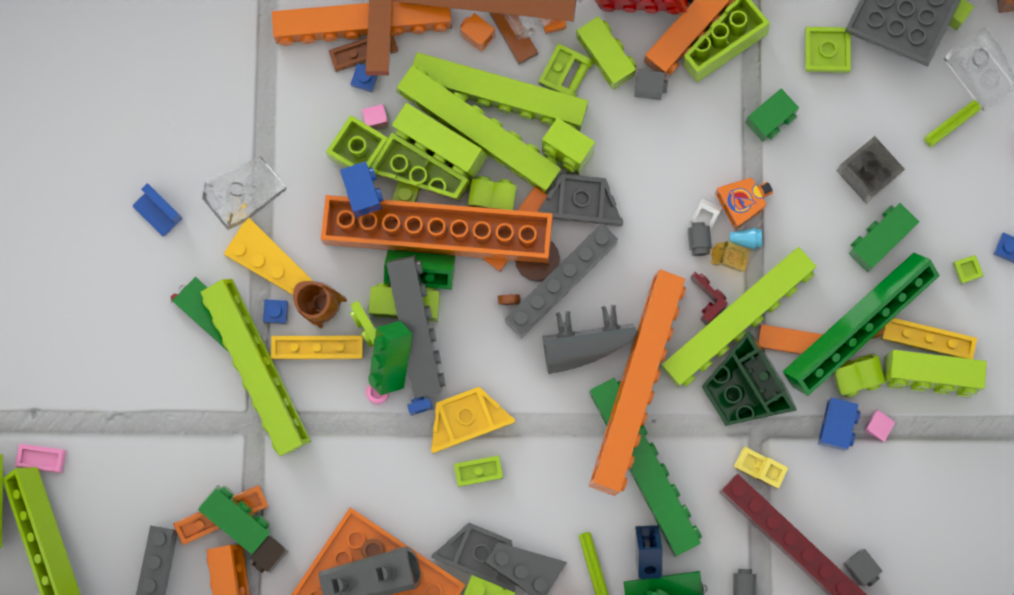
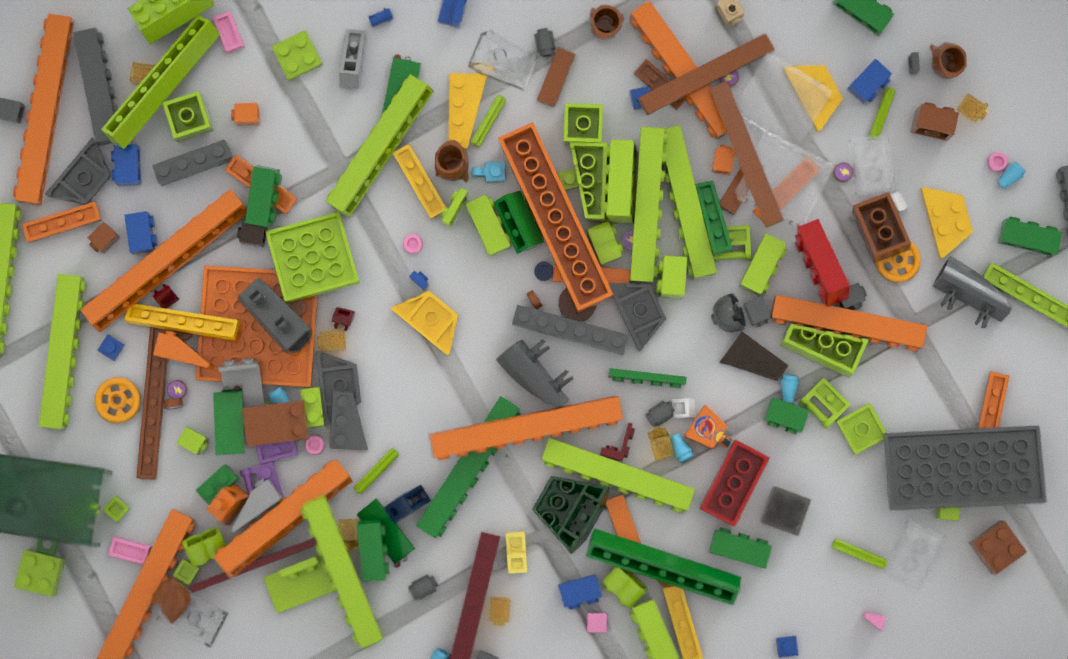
camera: 55 degrees right, 5 degrees up
(24, 576) = (139, 72): none -> clear yellow brick
(102, 551) = (187, 116): none -> lime brick
(108, 400) = (297, 55): none -> lime plate
(123, 290) = (381, 17): none -> blue pin
(137, 488) = (246, 114): none -> orange brick
(148, 344) = (352, 59): none -> light grey slope
(251, 139) = (545, 42): none -> dark grey brick
(267, 66) = (605, 22): none -> dark orange helmet
(275, 311) = (429, 136): blue plate -> none
(292, 149) = (556, 77): none -> dark orange tile
(296, 242) = (488, 120): none -> lime axle
(330, 504) = (312, 257): none -> lime plate
(351, 268) = (493, 172): none -> medium azure plate
(361, 189) = (550, 145): blue brick -> none
(375, 117) = (615, 122): bright pink slope -> none
(390, 358) = (439, 238): green brick -> none
(411, 508) = (343, 316): none -> dark red tile
(415, 315) = (473, 243): dark grey brick -> none
(430, 534) = (332, 340): none -> clear yellow brick
(478, 471) = (397, 349): lime plate -> none
(484, 274) = (543, 271): none -> dark blue tile
(502, 172) = (627, 240): none -> medium lavender tile
(532, 72) = (713, 218): none -> green plate
(637, 114) = (728, 315): none -> dark grey cylinder
(661, 224) = (638, 377): none -> green plate
(695, 114) = (753, 357): none -> dark brown wing
(745, 96) = (789, 386): none -> medium azure cone
(777, 64) = (829, 398): none -> lime plate
(813, 204) = (734, 483): none -> red brick
(813, 519) = (499, 610): none -> clear yellow brick
(967, 269) = (752, 624): lime plate -> none

